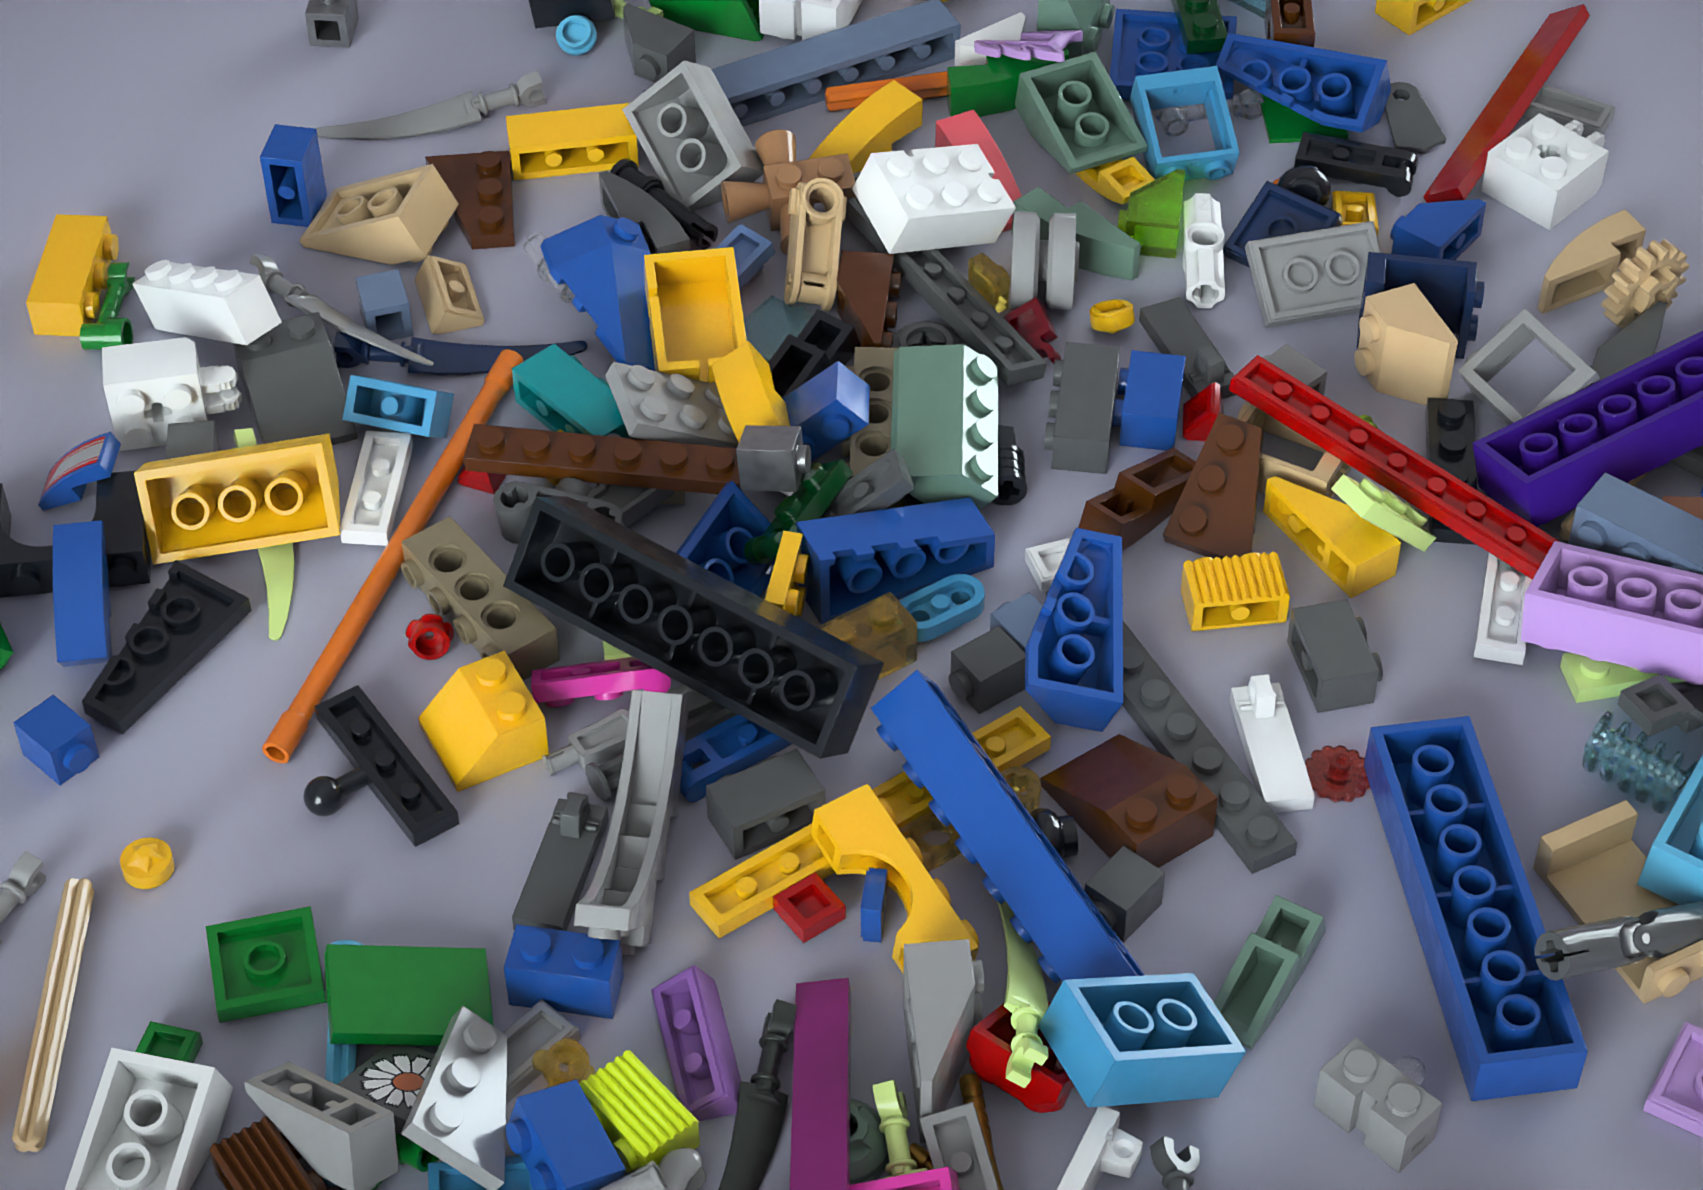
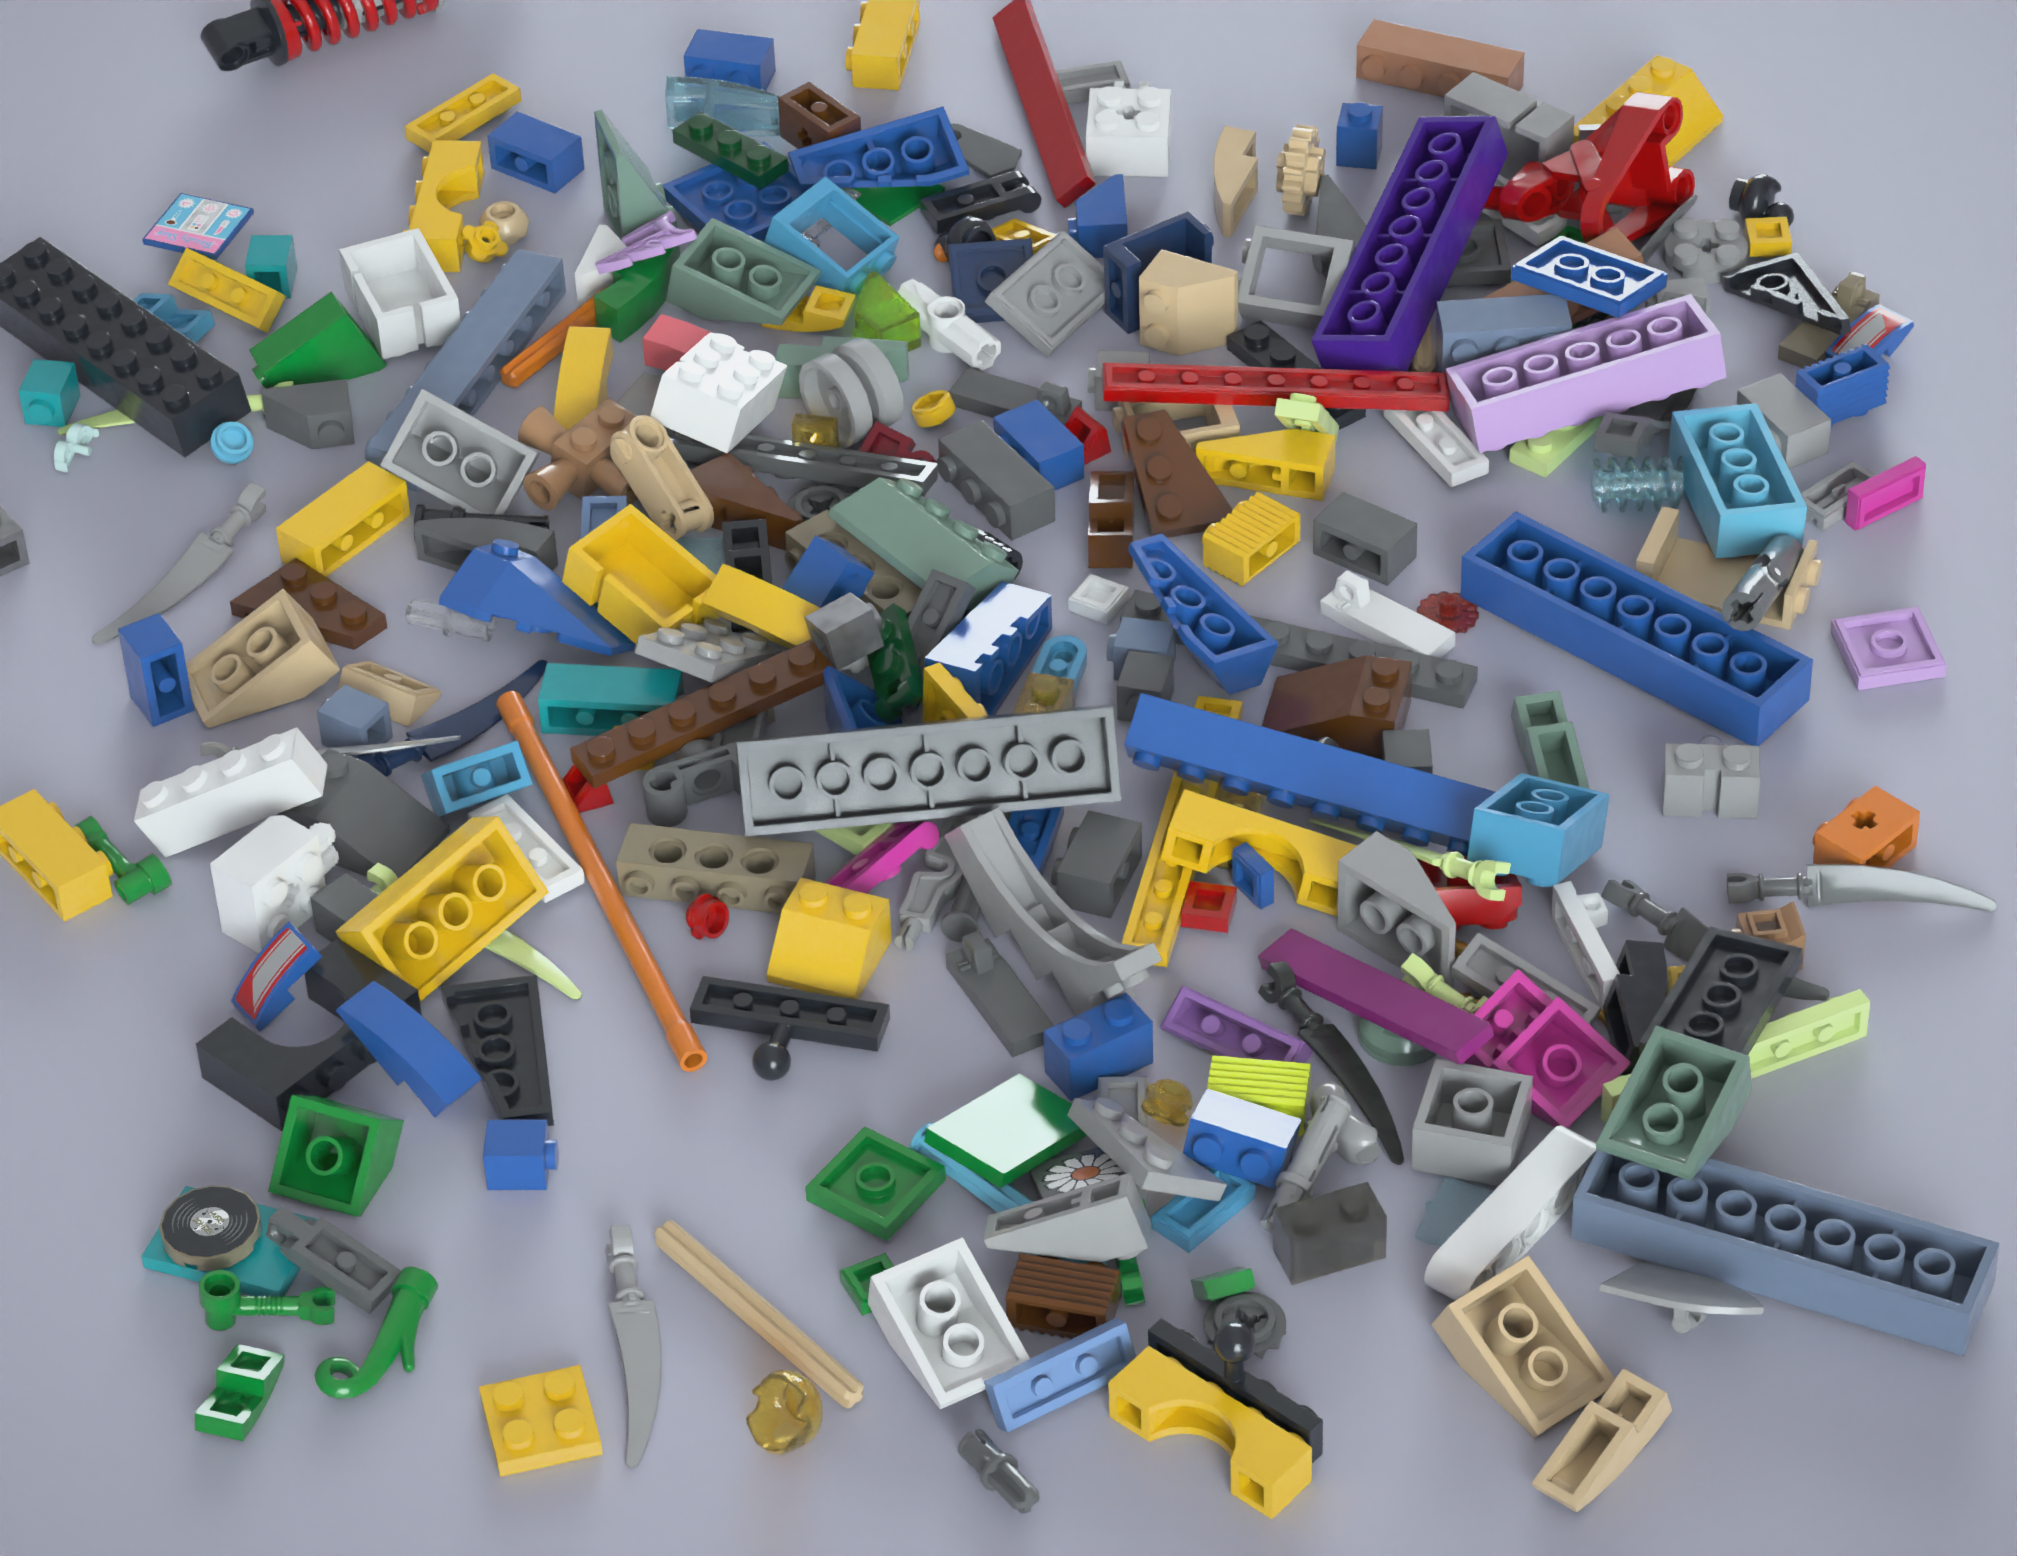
camera: 40 degrees left, 5 degrees down
(147, 863) = (693, 1187): yellow tile -> none

